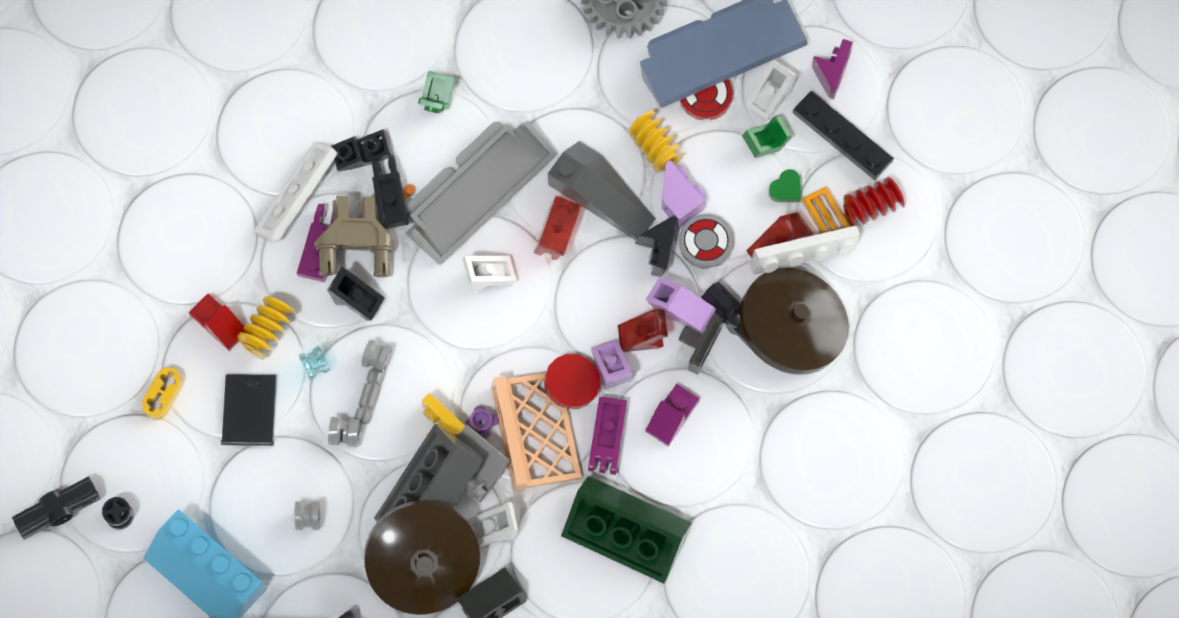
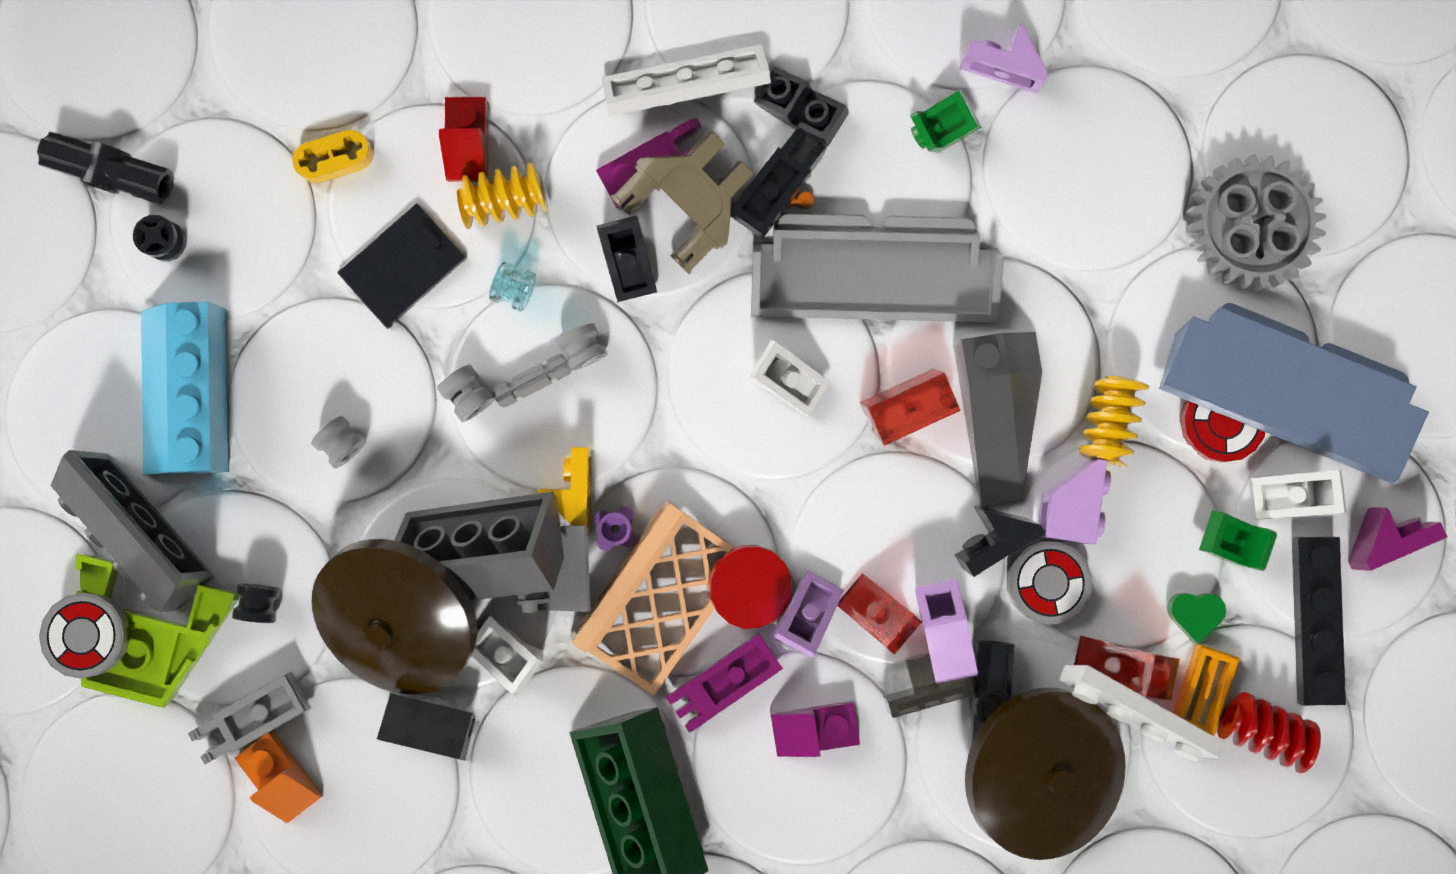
camera: 45 degrees right, 15 degrees up
(442, 36) = (1016, 67): none -> lavender slope

